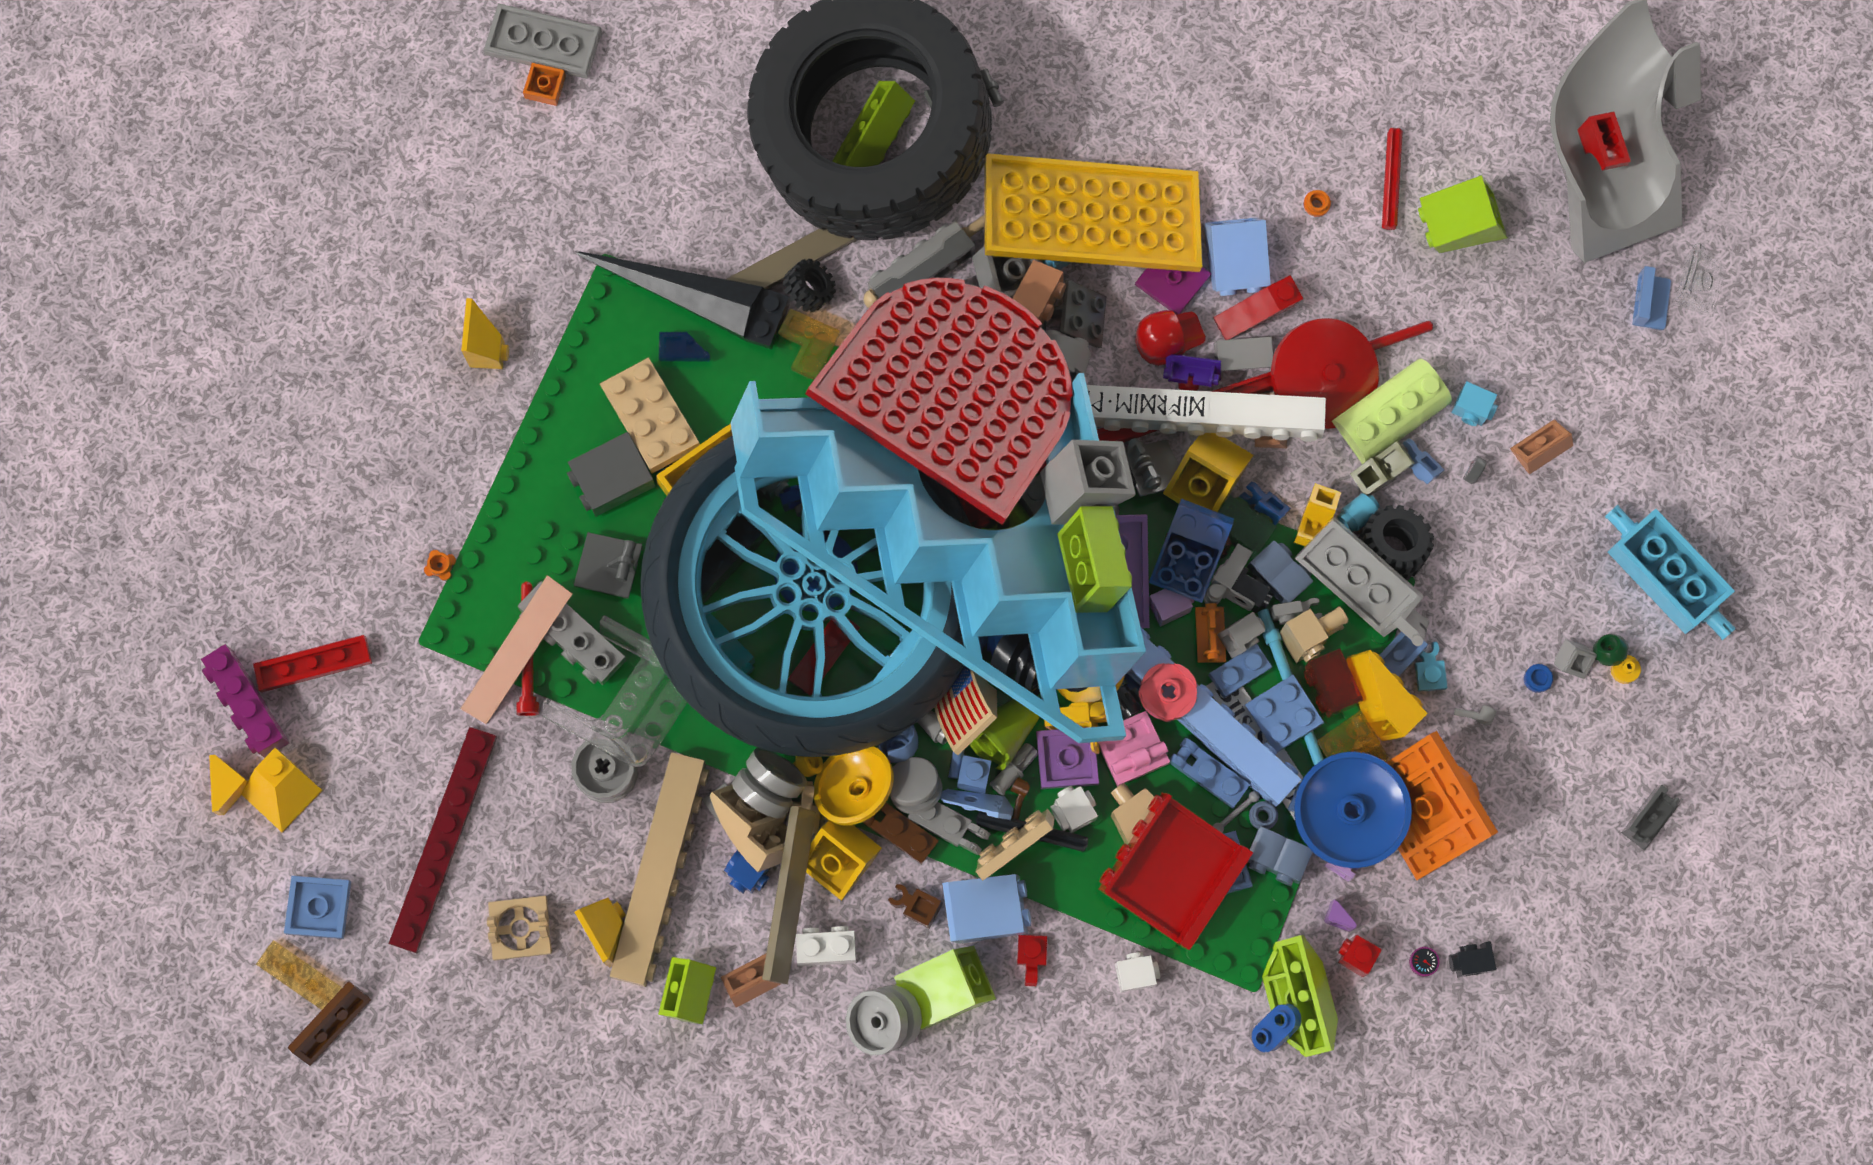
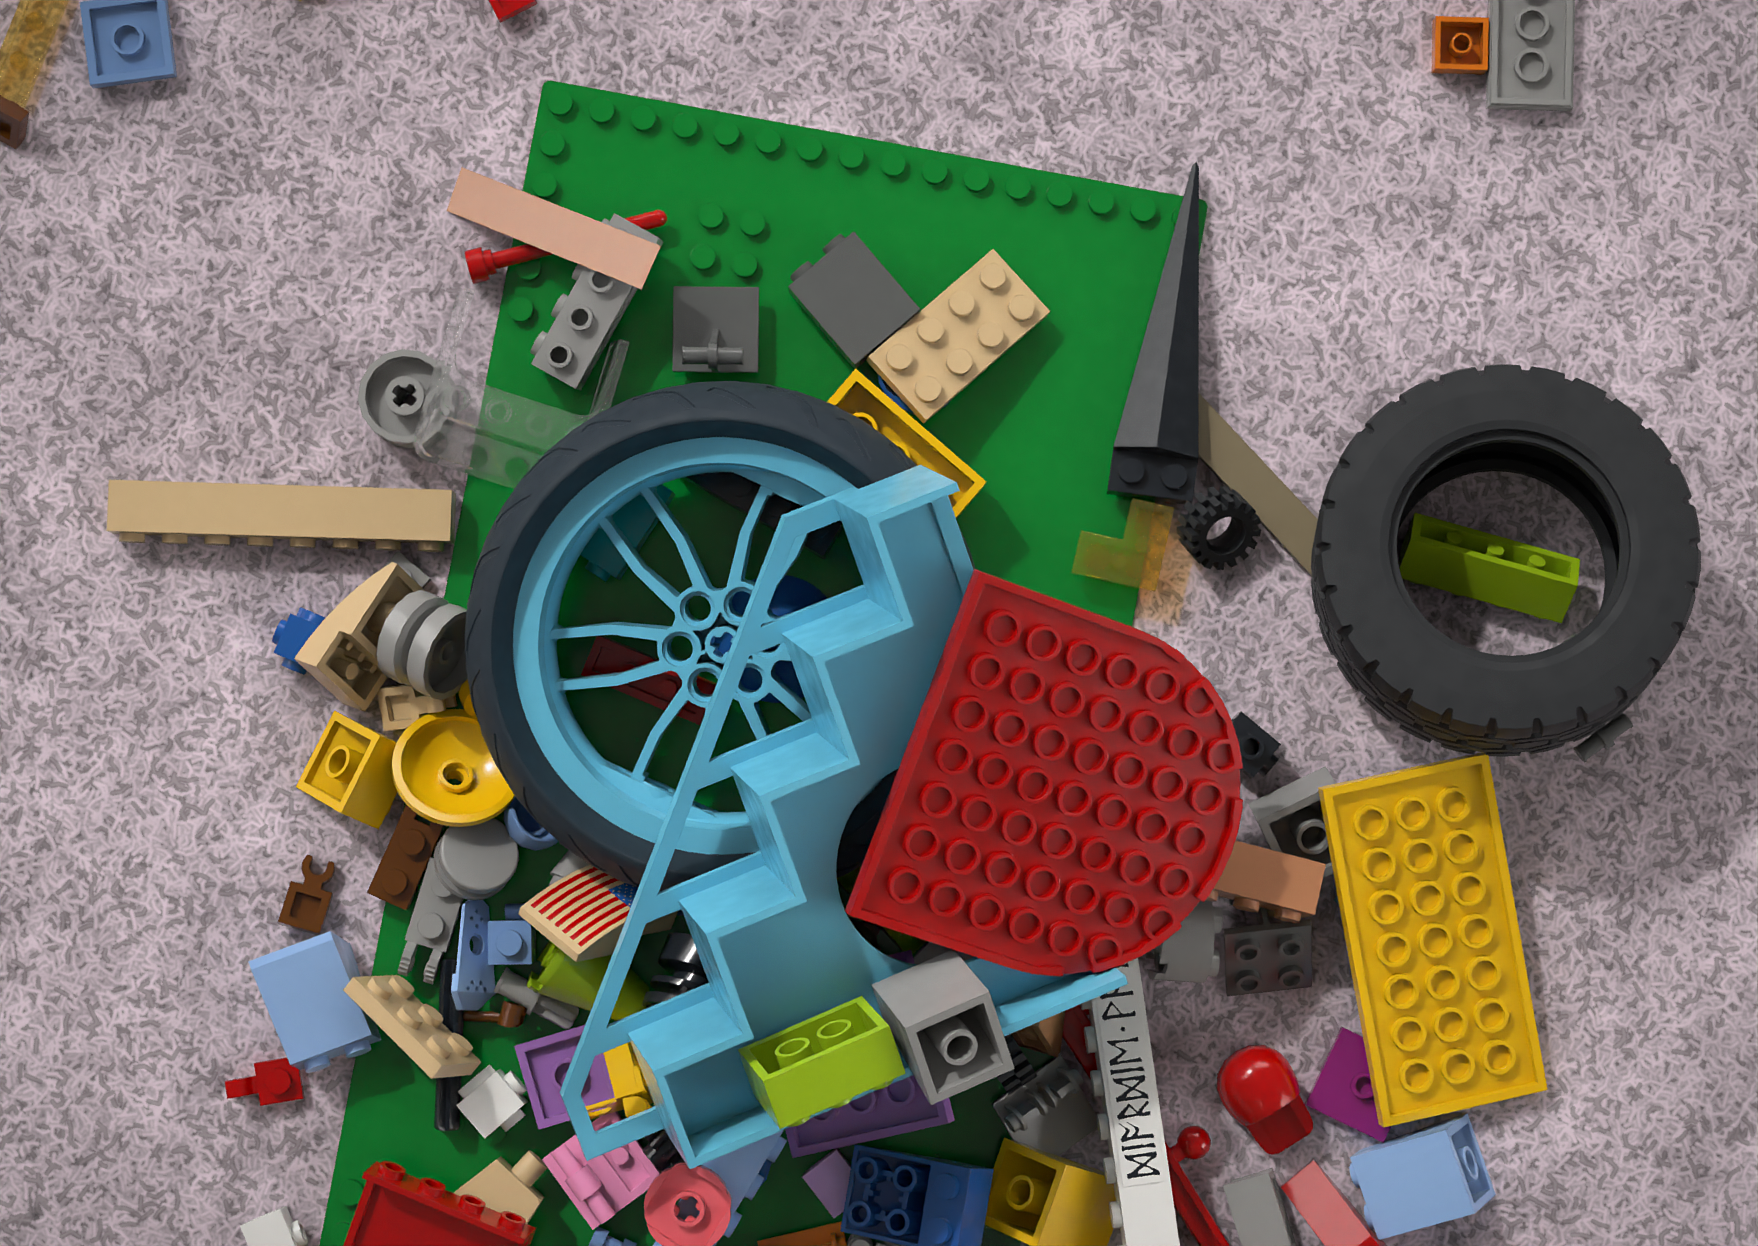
camera: 80 degrees right, 10 degrees up
(434, 559) = (661, 71): orange plate -> none
(442, 840) = (264, 192): dark red plate -> none
(481, 340) = (1021, 55): yellow slope -> none
(499, 908) = (122, 313): tan piece -> none
(603, 926) = (175, 452): yellow slope -> none
(680, 347) = (1078, 355): clear blue tile -> none
(687, 990) = (113, 595): lime brick -> none
(746, 982) = (156, 685): nougat slope -> none
(789, 895) = (275, 710): dark tan tile -> none
(826, 947) = (217, 780): white brick -> none
(883, 1020) = (124, 887): light grey wheel -> none
(929, 259) = (1291, 693): piece -> none
(947, 985) = (193, 965): lime slope -> none
(1205, 371) = (1215, 1165): dark purple hinge -> none

